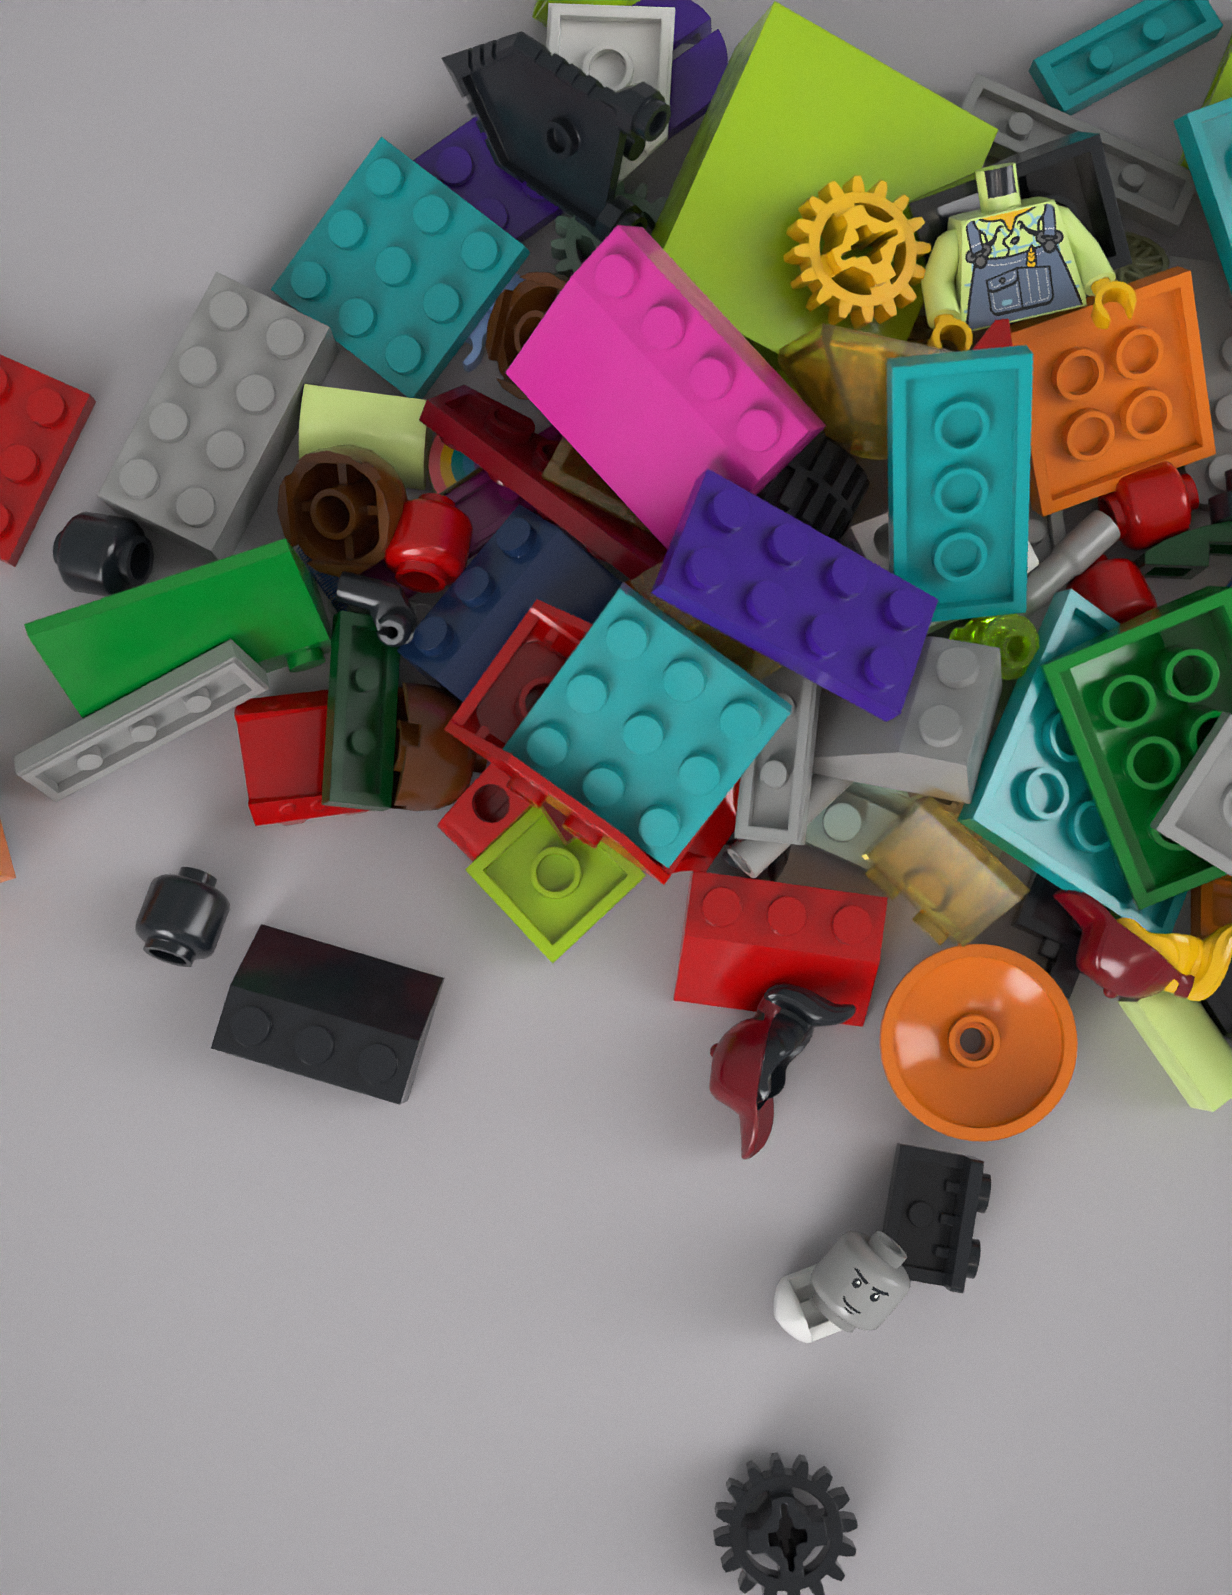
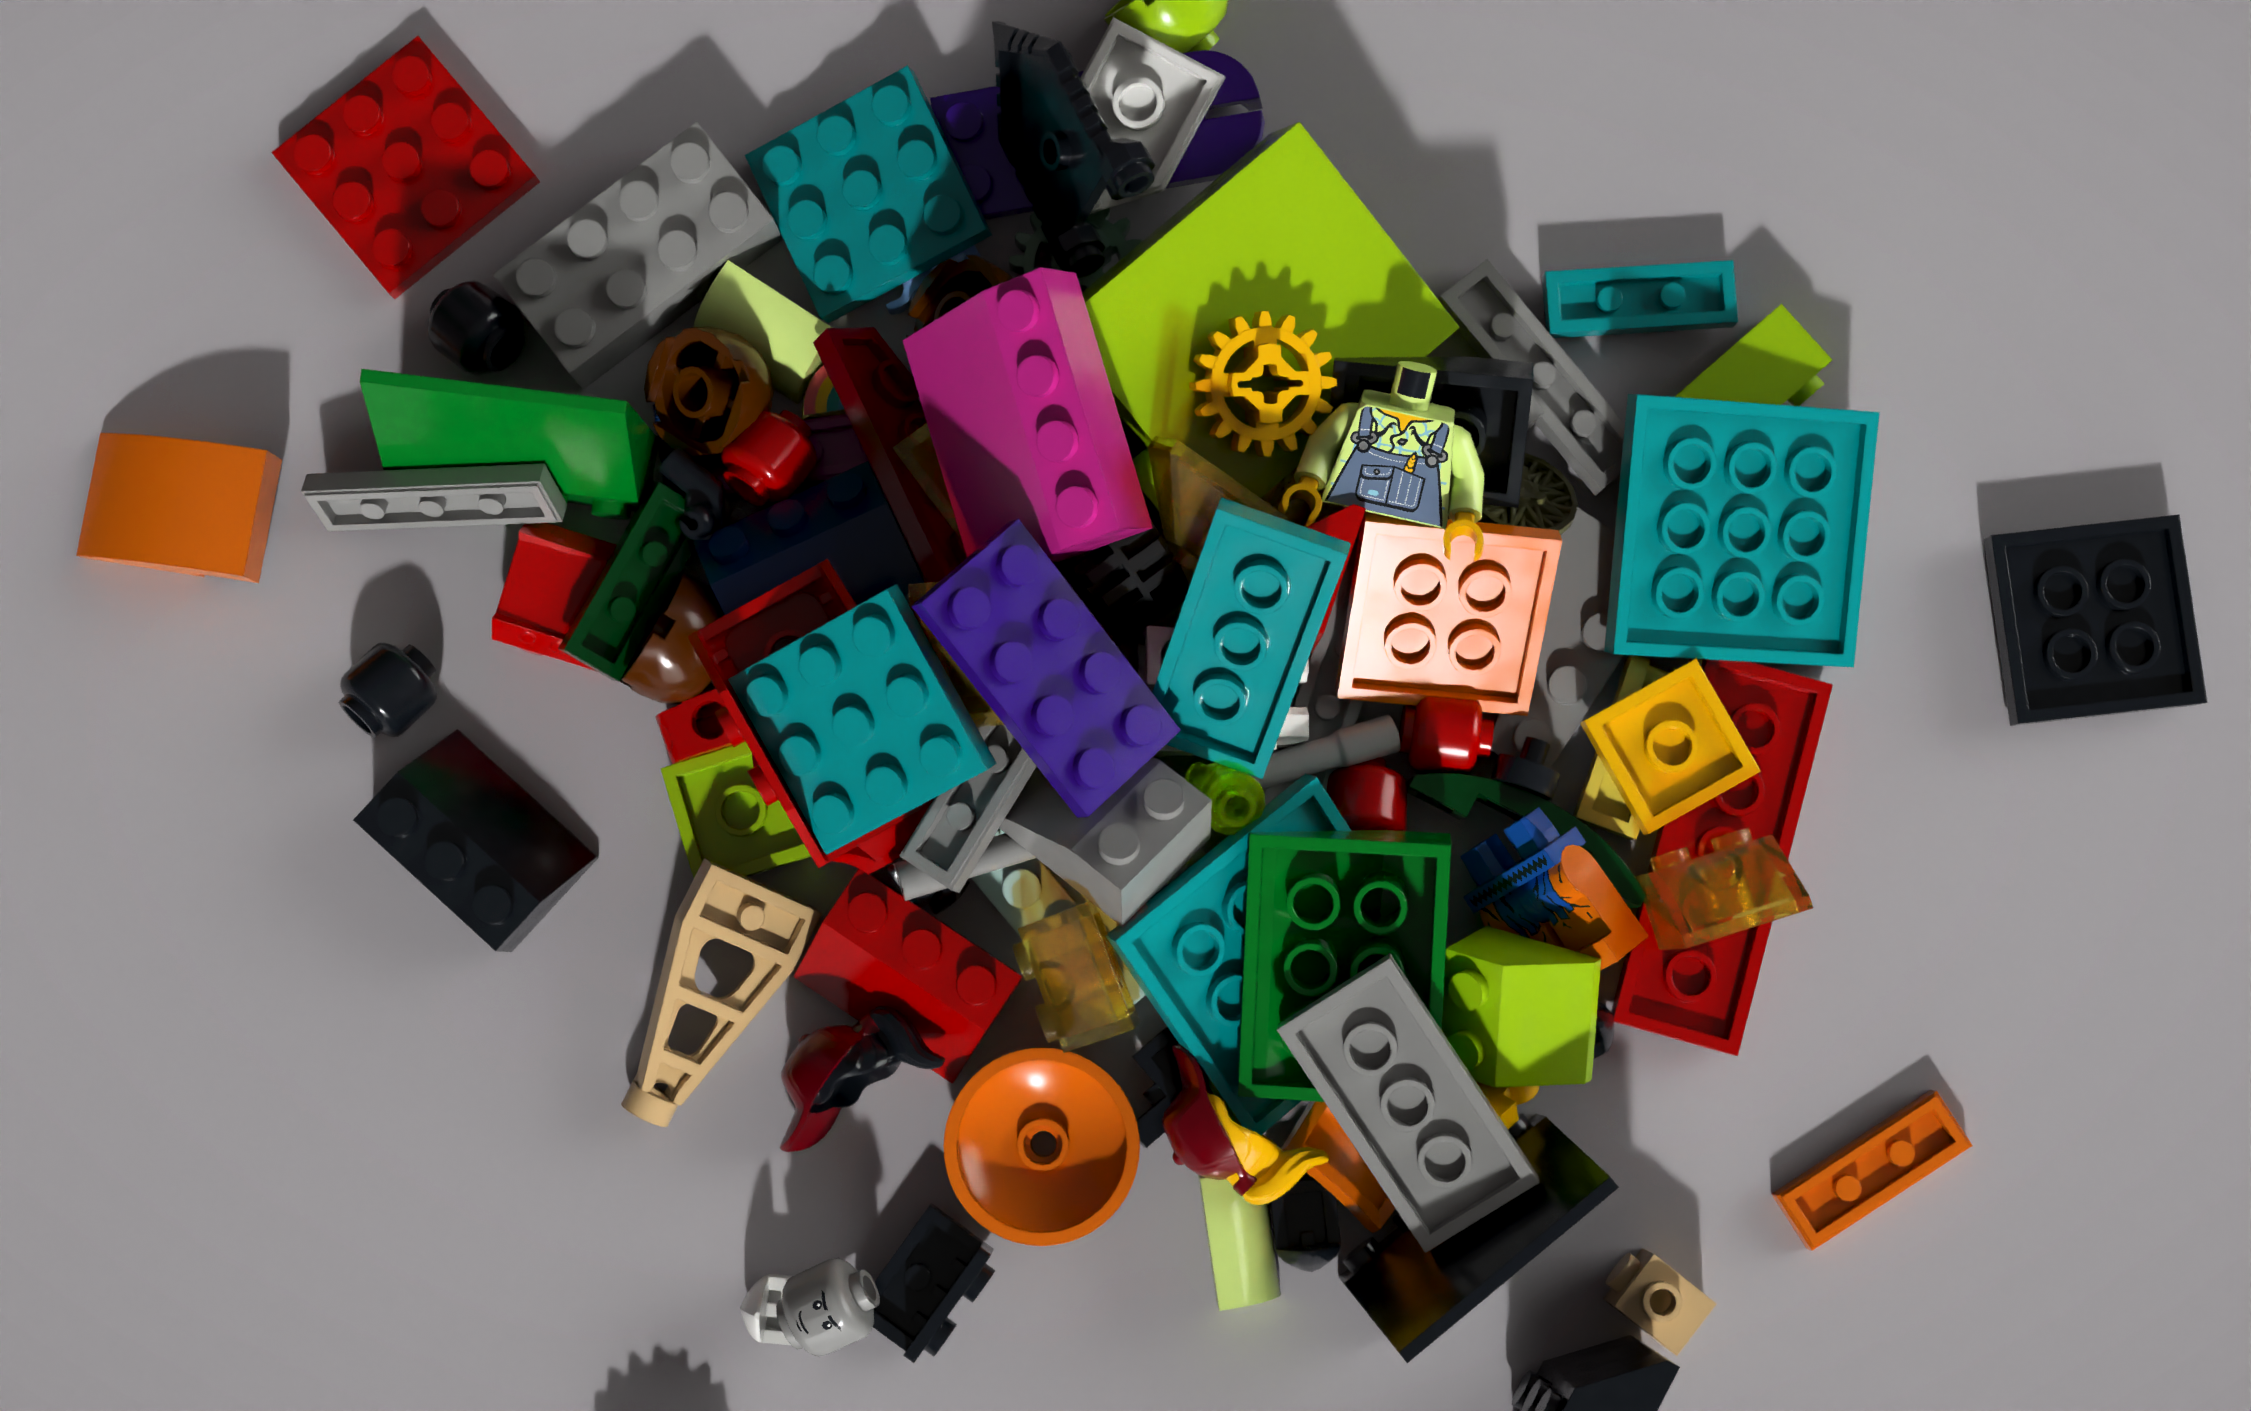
camera: 25 degrees right, 0 degrees up
(608, 964) = (742, 914): none -> tan plate

